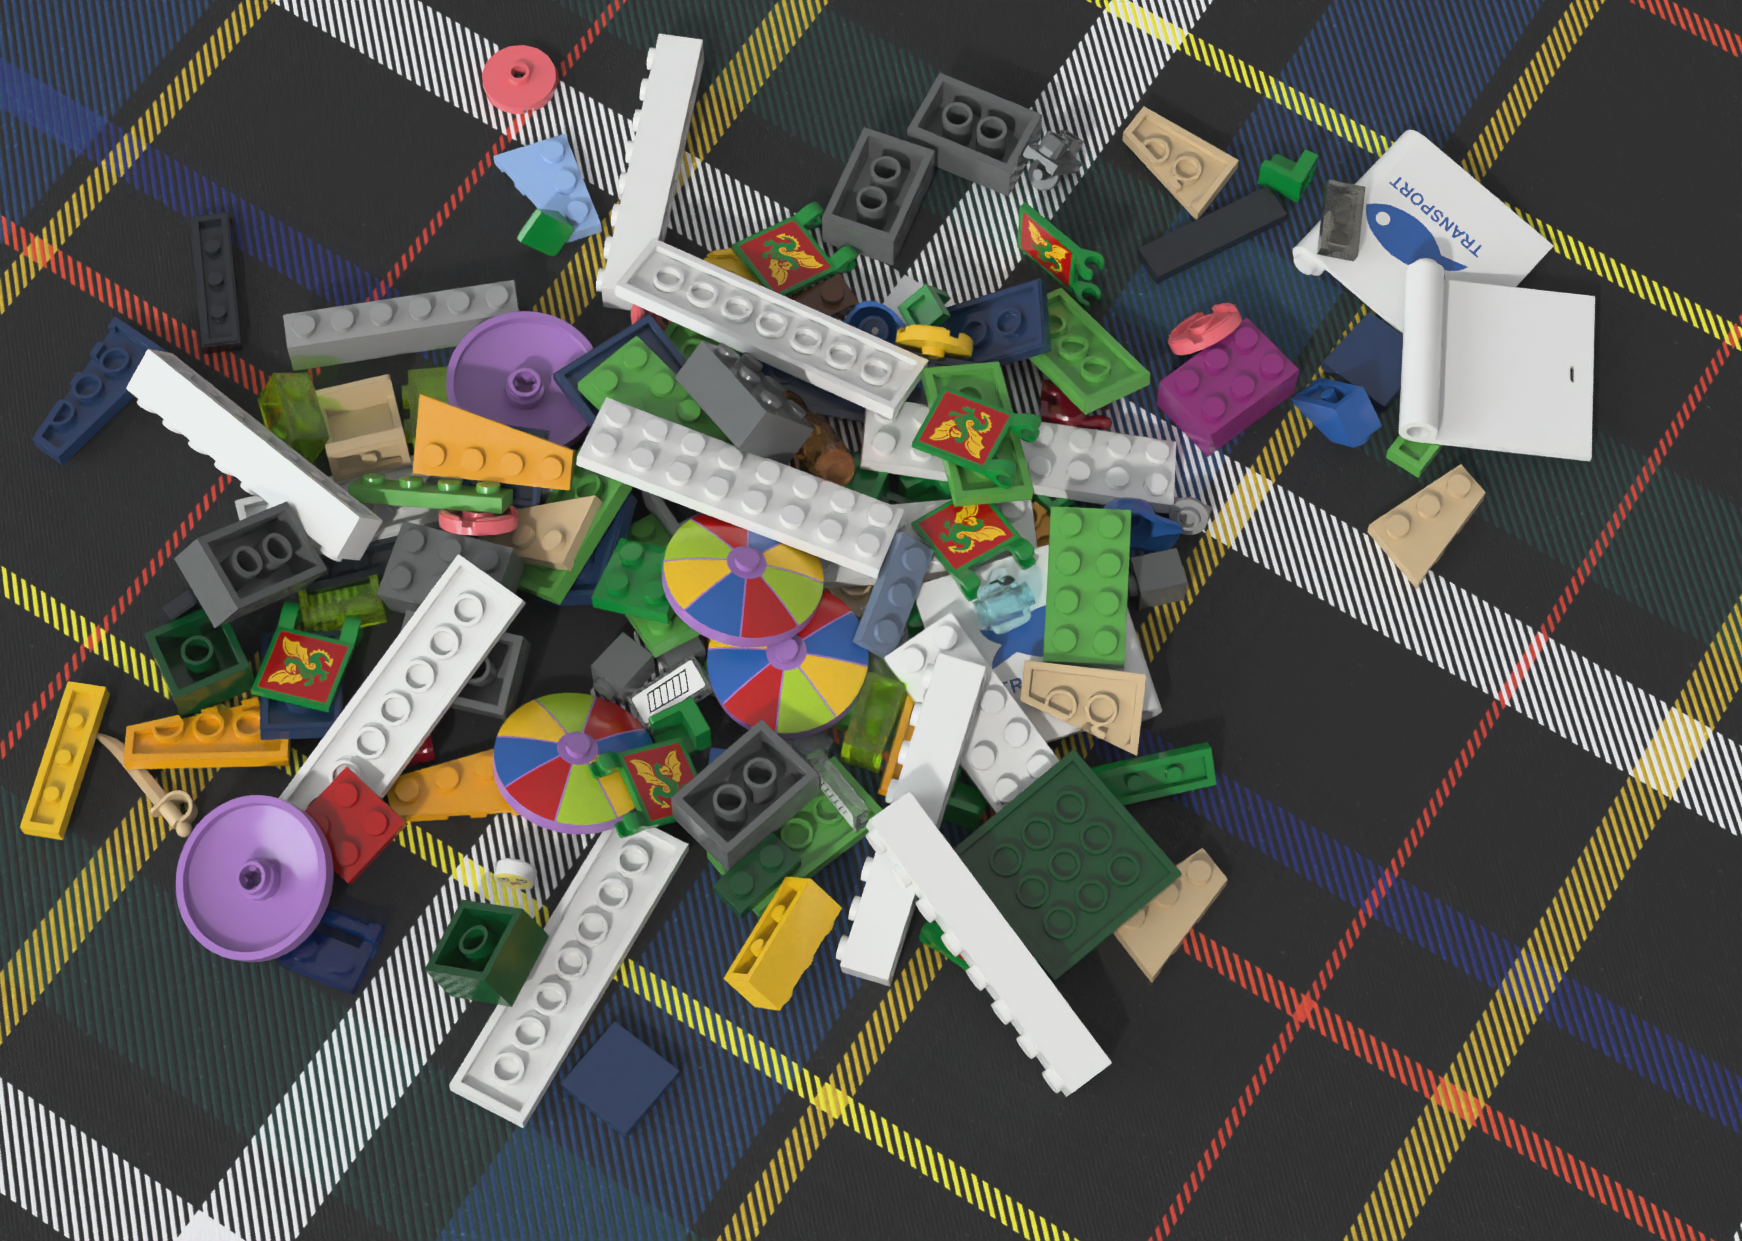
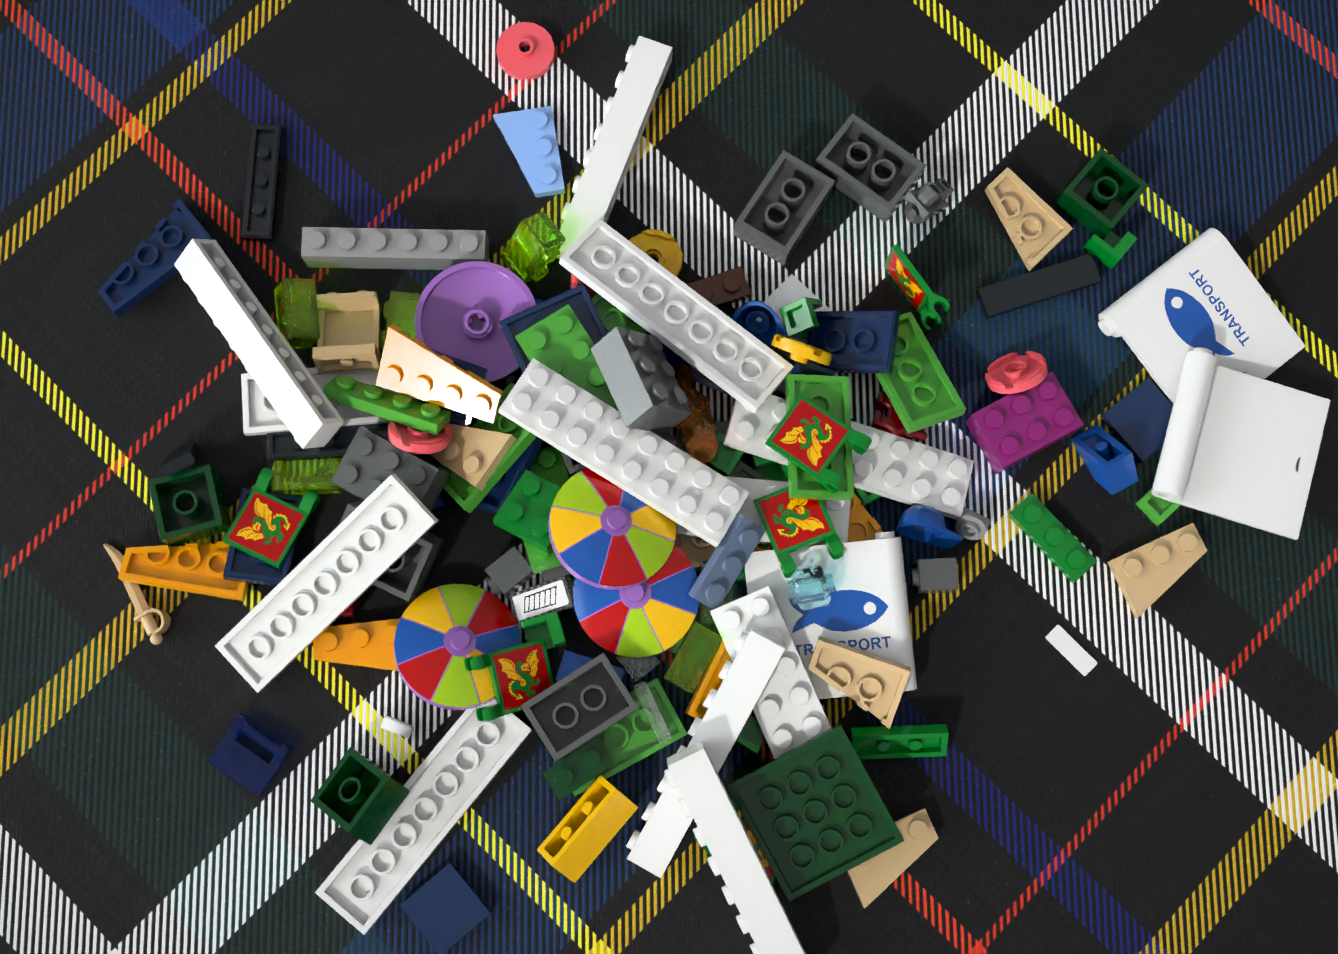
camera: 10 degrees right, 15 degrees up
(65, 760) = (76, 565): yellow plate -> none
(250, 564) = (234, 443): dark grey brick -> none
(254, 878) = (197, 697): medium lavender dish -> none
(354, 823) = (276, 667): red plate -> none
(546, 231) = (520, 189): green slope -> none
(578, 287) = (533, 247): none -> clear neon green brick
(788, 257) = (703, 247): flag -> none
(1087, 587) = (879, 585): bright green plate -> none
(1264, 114) = (1101, 194): none -> dark green brick
(1292, 514) = (1052, 538): none -> green plate
(1341, 220) = (1144, 302): clear smoke plate -> none
(1345, 639) = (1071, 650): none -> white sticker

